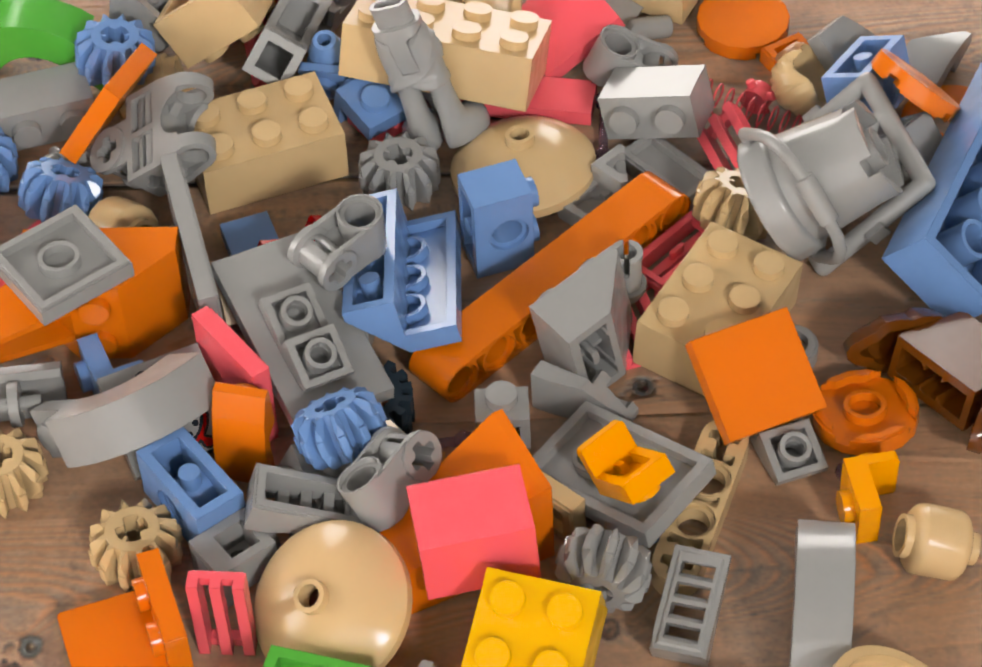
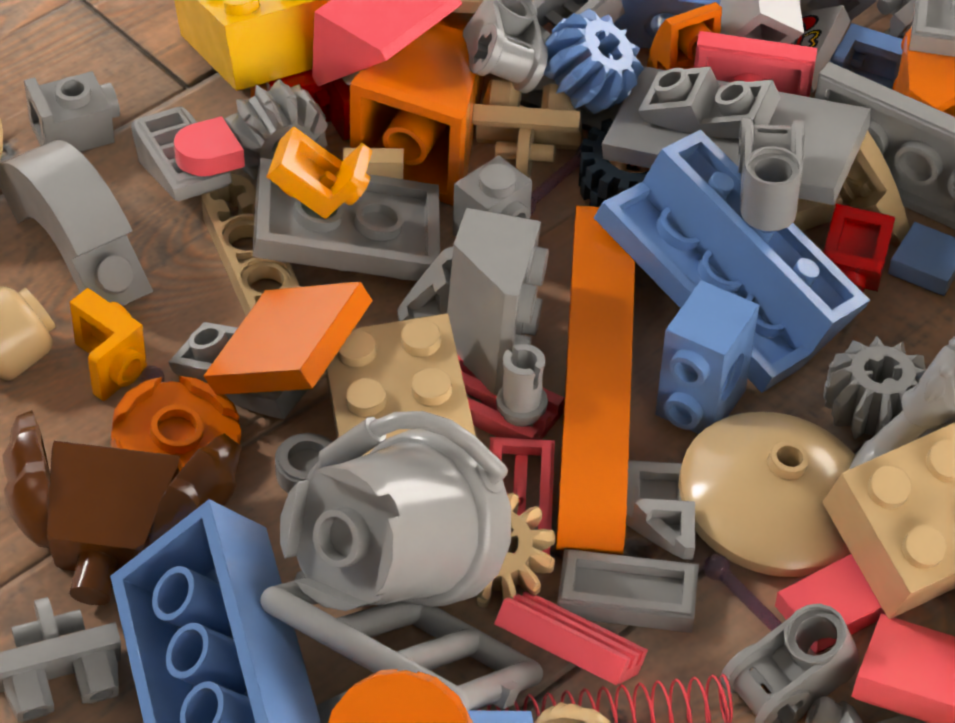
camera: 135 degrees right, 0 degrees up
(656, 102) = (701, 612): light grey brick -> none
(679, 562) = (208, 148): none -> coral tile

